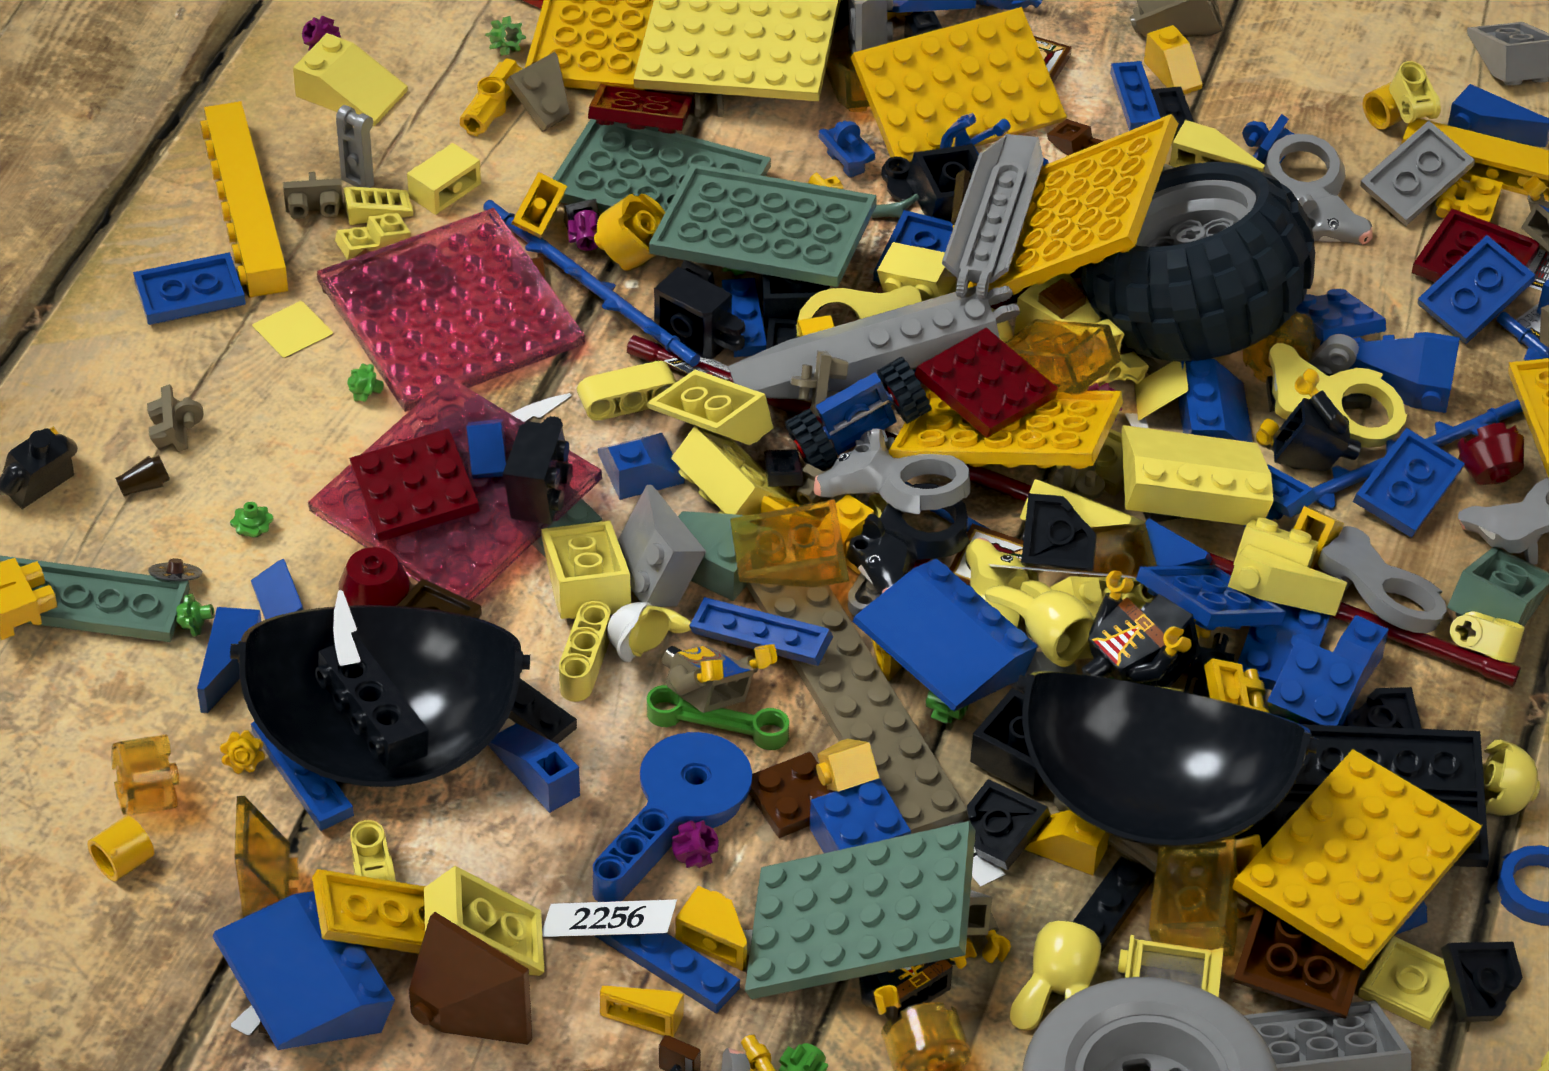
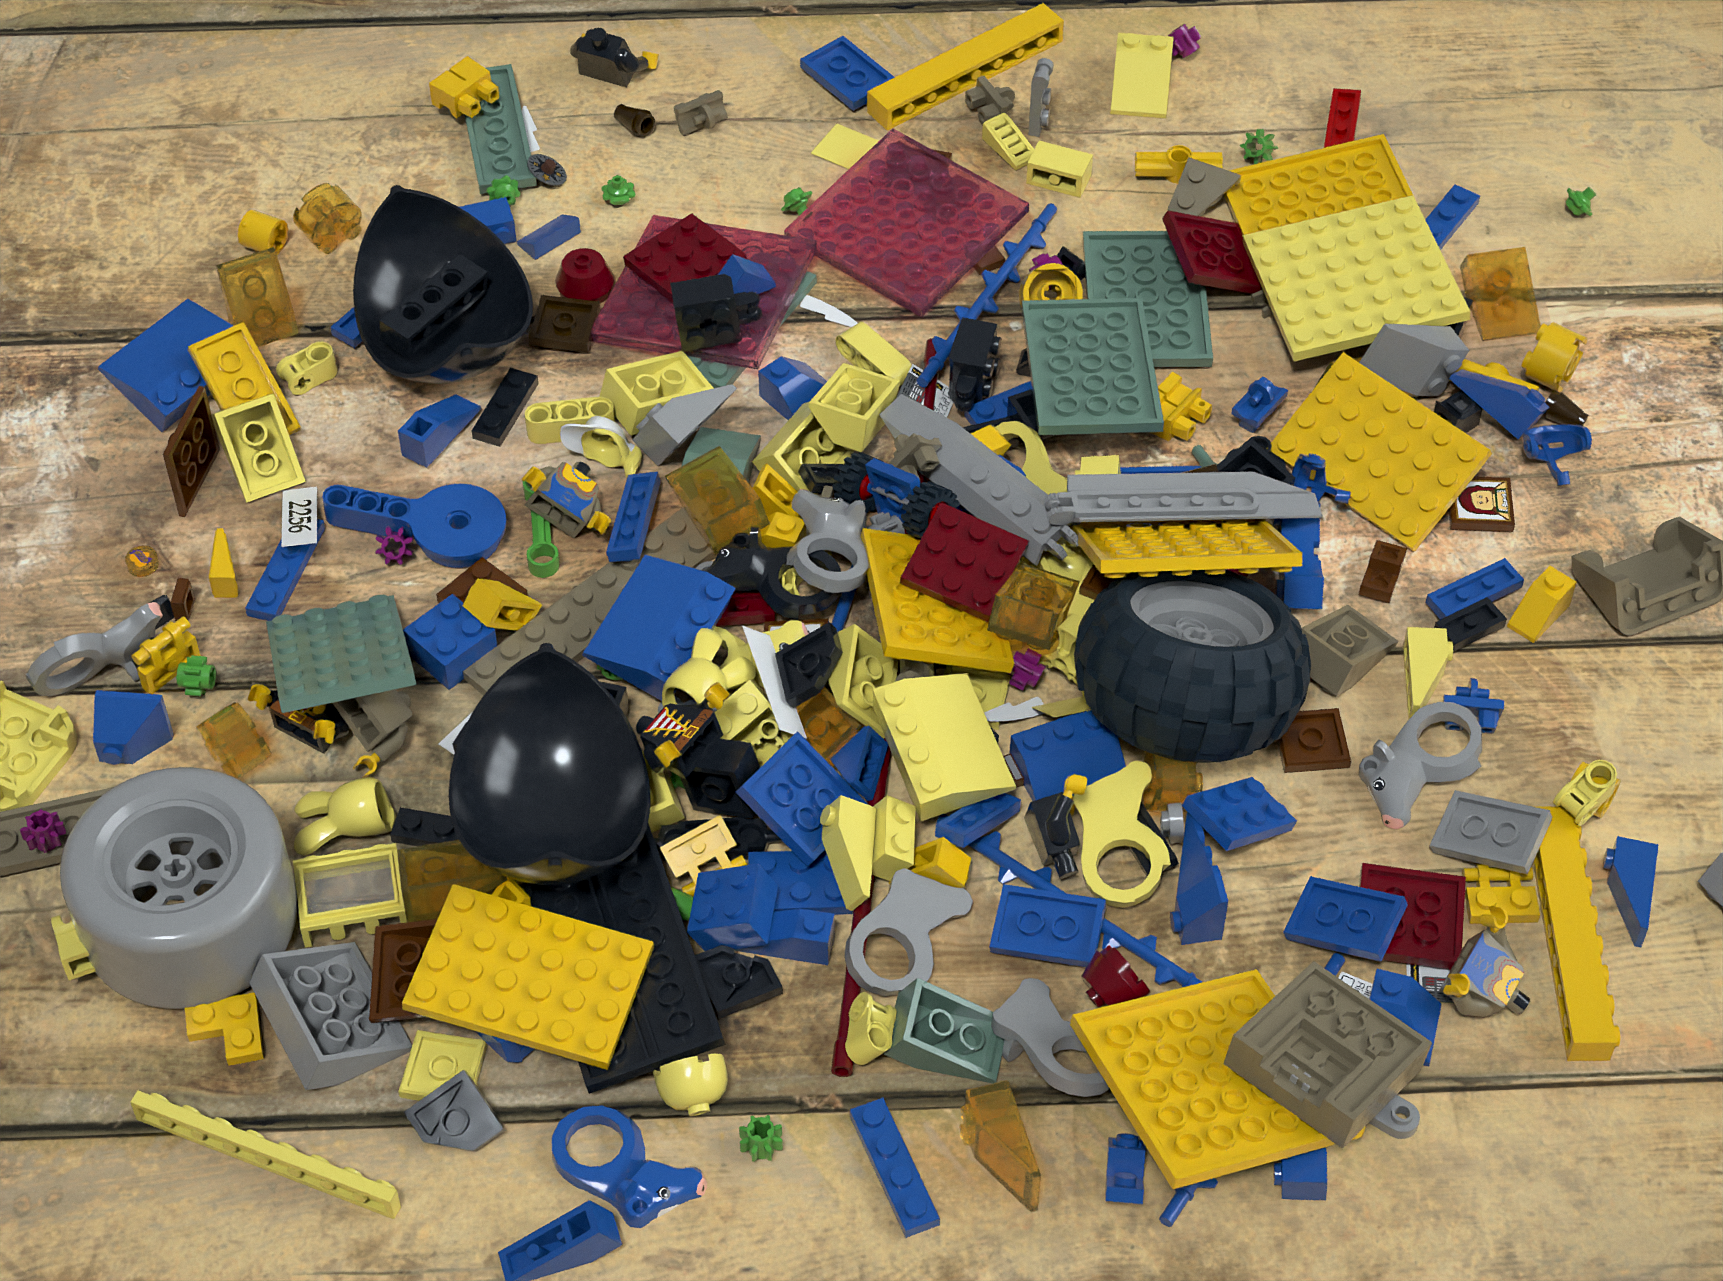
camera: 70 degrees right, 5 degrees up
(342, 629) = (485, 257): white sticker -> none
(380, 232) = (972, 156): light yellow slope -> none
(539, 205) = (1047, 231): yellow slope -> none
(712, 927) = (319, 581): yellow slope -> none

